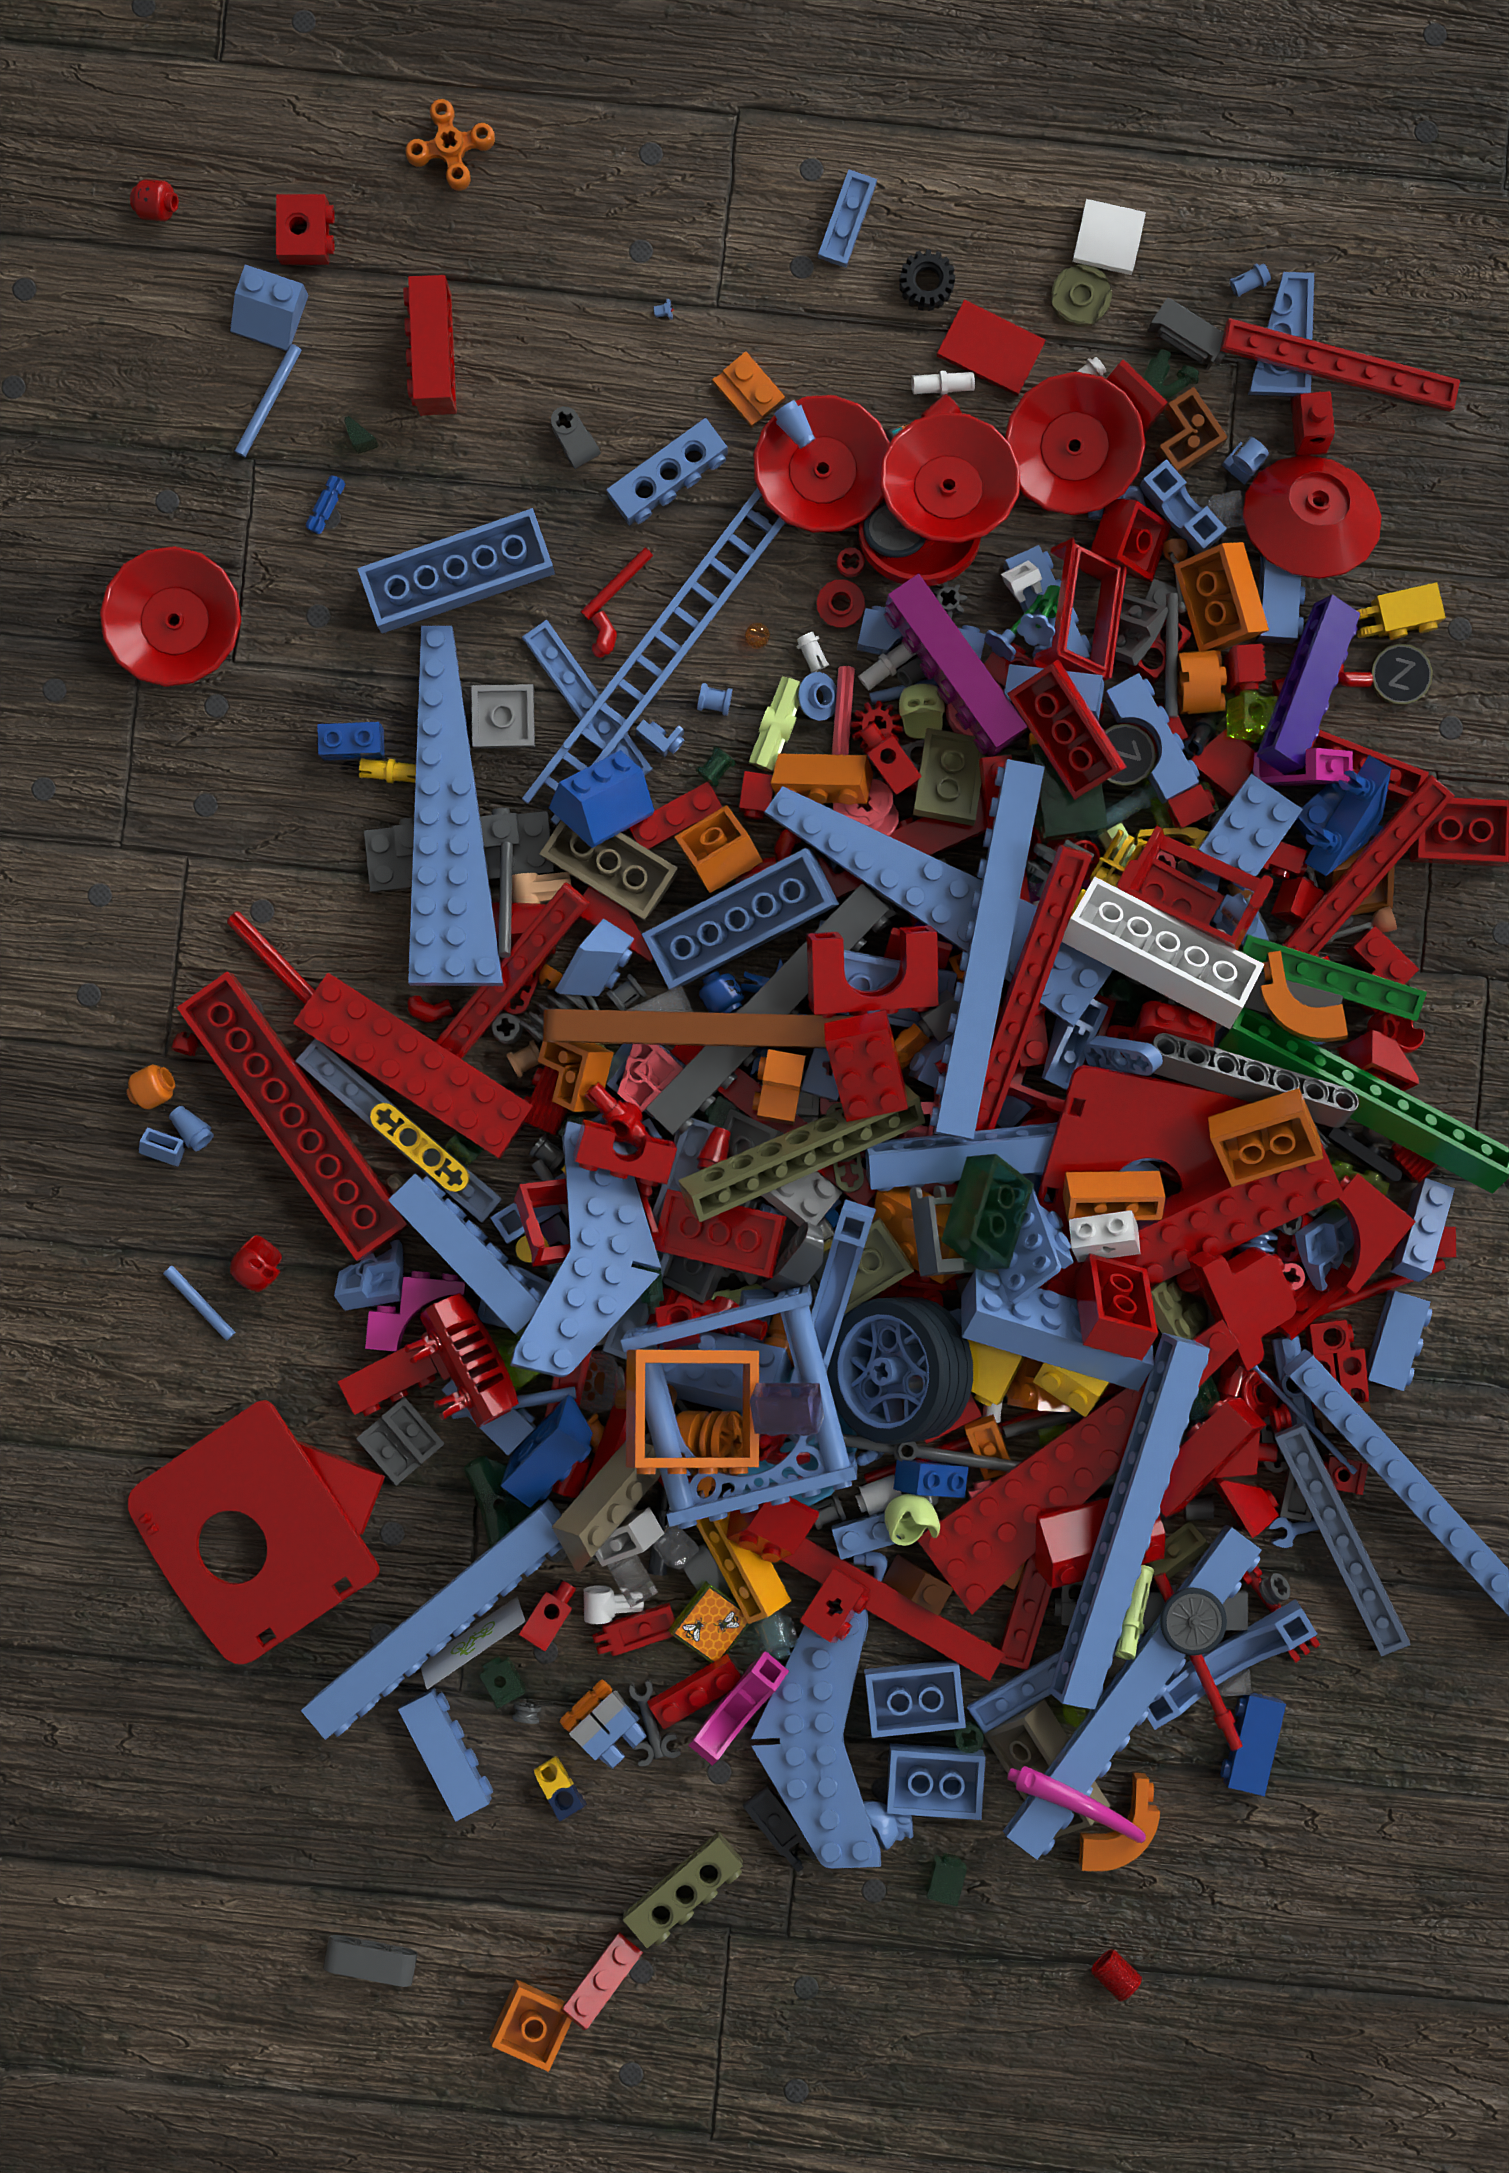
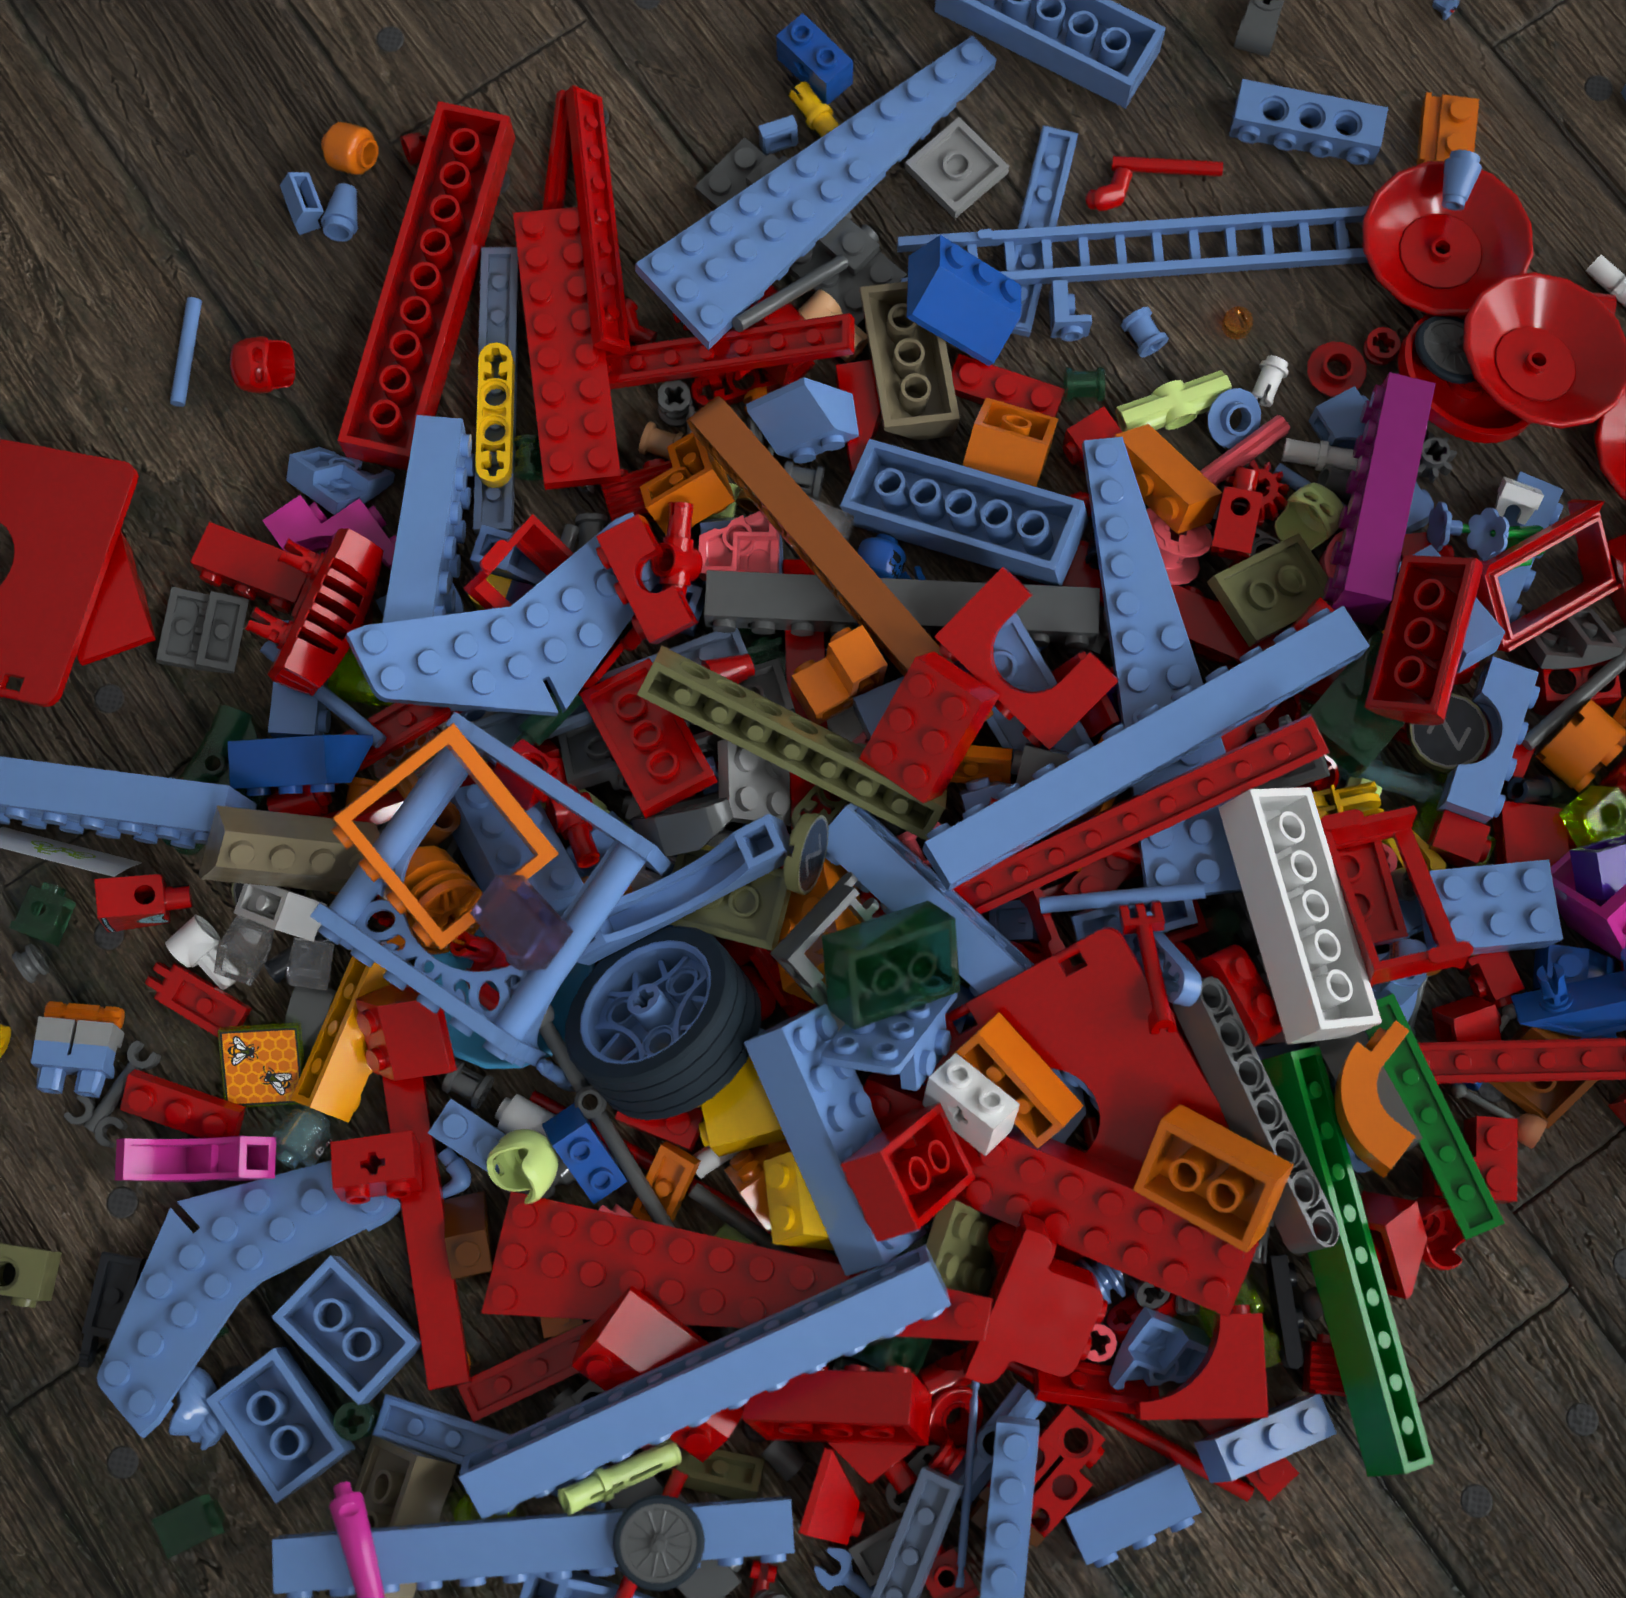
camera: 55 degrees right, 10 degrees down
(343, 973) = (597, 221): none -> red tile
(382, 808) = (778, 135): none -> medium blue tile
(878, 1201) = (808, 855): none -> tile
(1060, 1041) = (1122, 897): none -> medium blue bar
(1088, 1046) = (1144, 926): none -> red hinge

